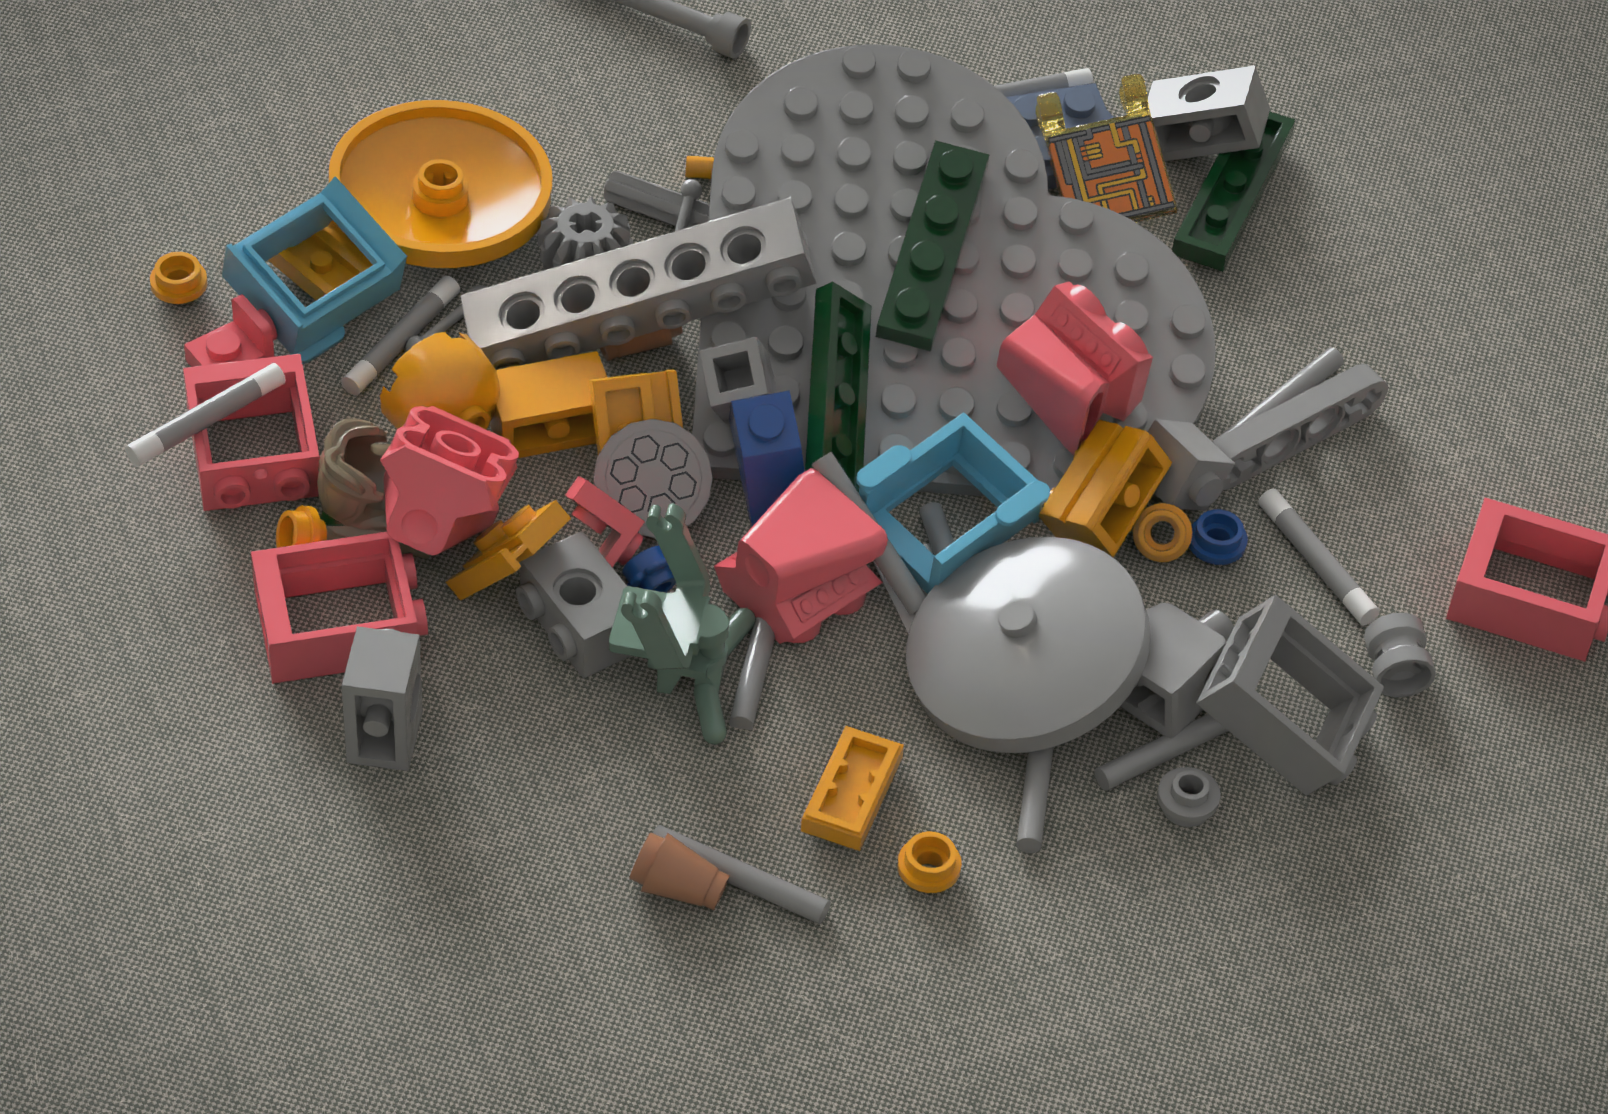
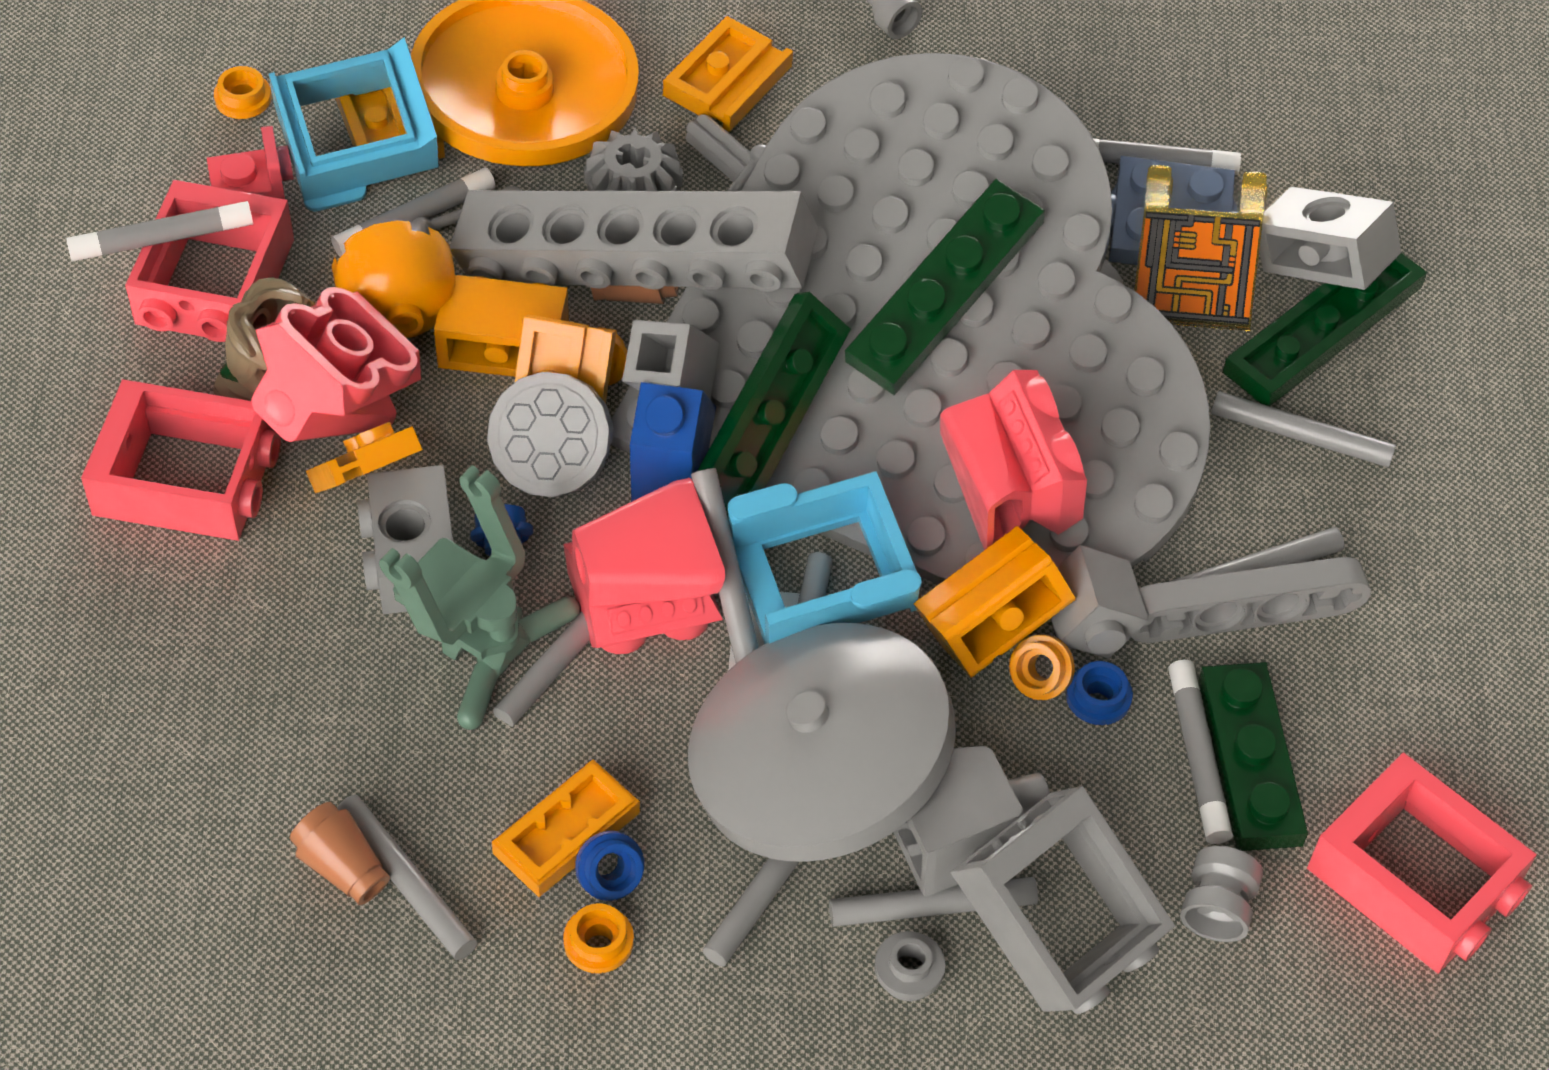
camera: 25 degrees right, 5 degrees up
(300, 527) = (196, 372): light orange plate -> none
(382, 698) = (152, 568): light grey brick -> none
(599, 511) = (469, 444): coral bracket -> none
(611, 129) = (727, 73): none -> light orange plate
(921, 804) = (625, 875): none -> blue plate
(1269, 278) = (1303, 429): none -> light grey bar
(1362, 545) = (1252, 757): none -> dark green plate

